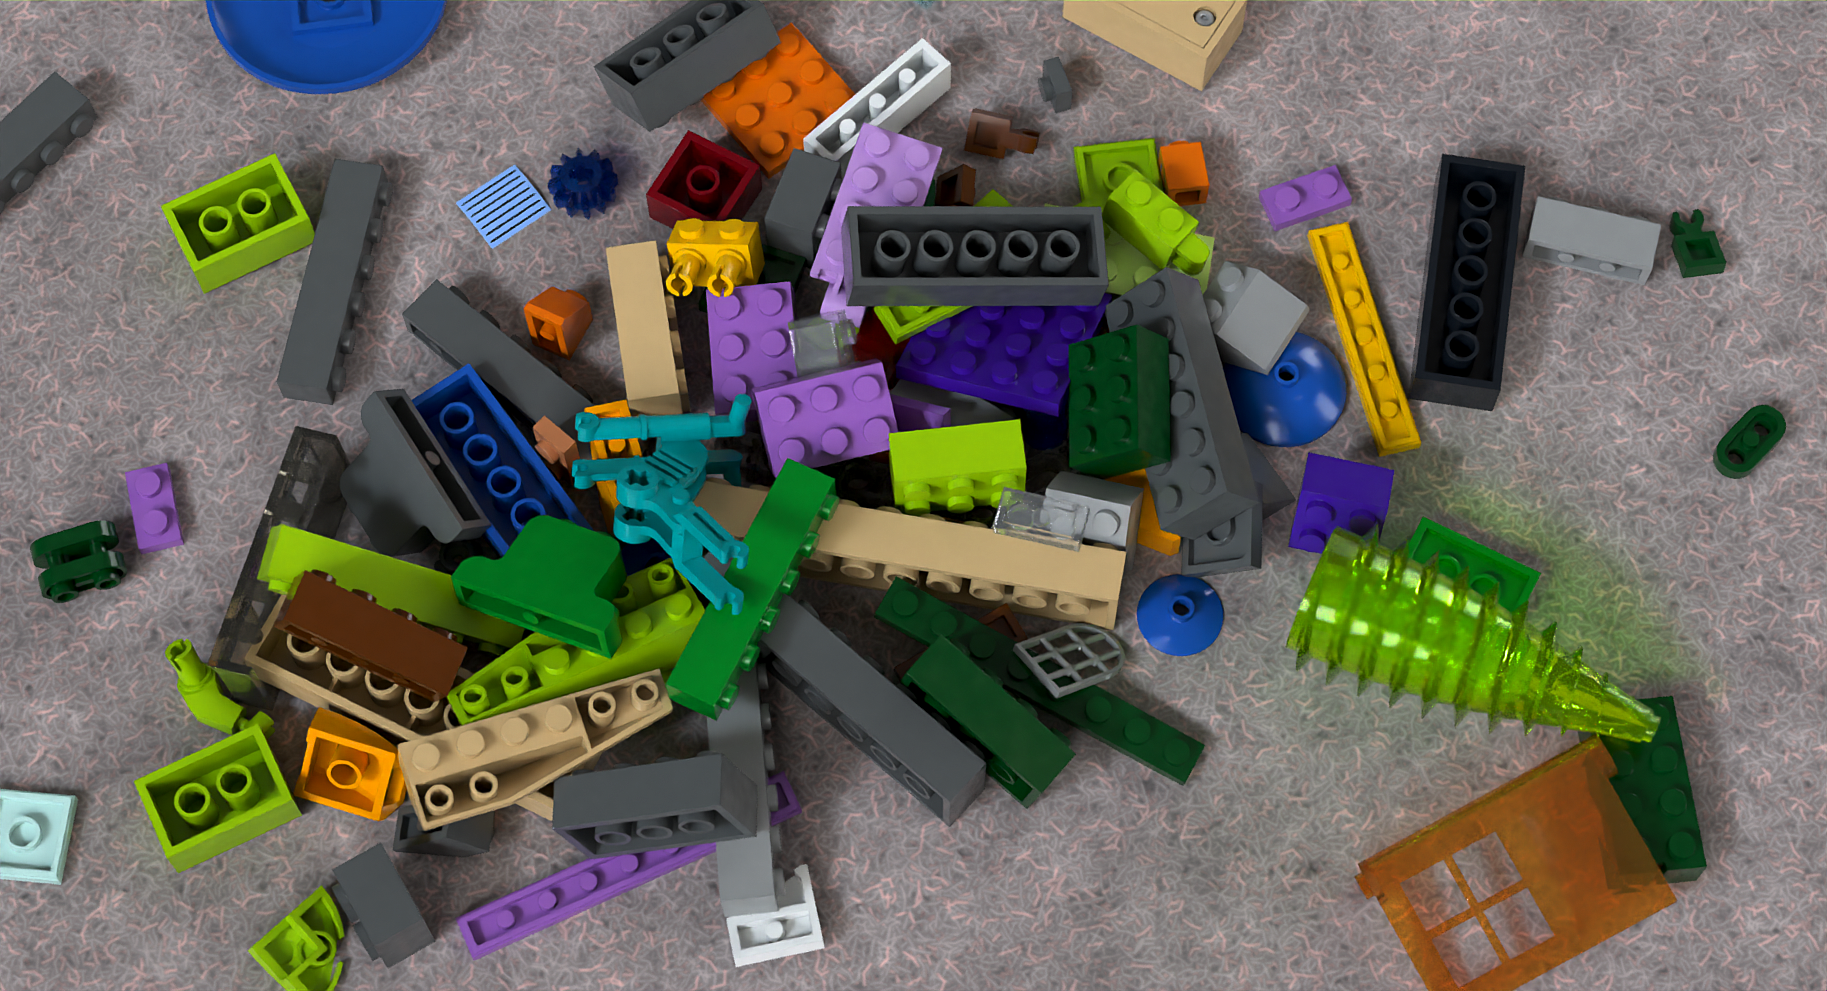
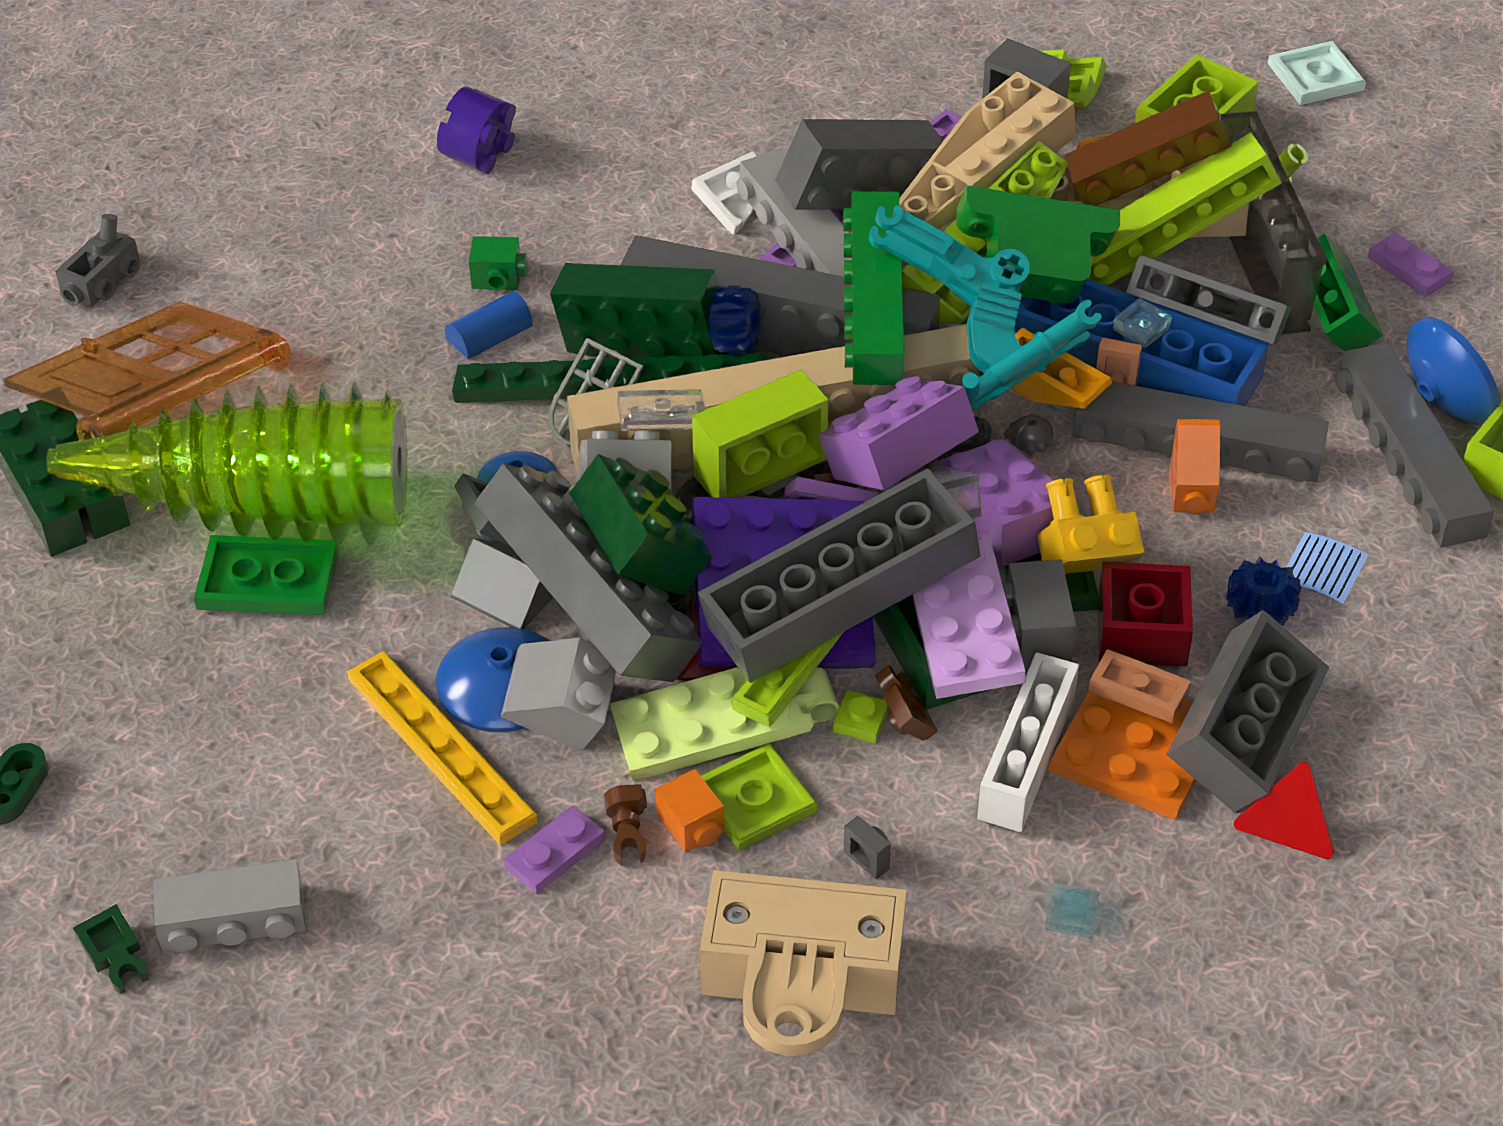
camera: 155 degrees right, 20 degrees down
(78, 560) = (1431, 207): dark green brick -> none
(261, 466) = (1343, 303): none -> green brick
(266, 300) = (1451, 372): none -> blue dish
(508, 464) = (1142, 322): none -> clear light blue plate
(647, 330) = (1084, 442): tan brick -> none
(759, 116) = (1139, 686): none -> nougat plate
(904, 636) = (734, 319): none -> clear blue gear
(992, 134) = (905, 780): reddish brown plate -> none
(1088, 912) = (496, 263): none -> green brick
(1131, 833) = (489, 325): none -> blue brick
(1155, 225) = (689, 715): lime brick -> none
(1233, 206) = (624, 806): none -> reddish brown piece
(1340, 495) = (400, 558): dark purple brick -> none
(1467, 283) = (350, 810): black brick -> none

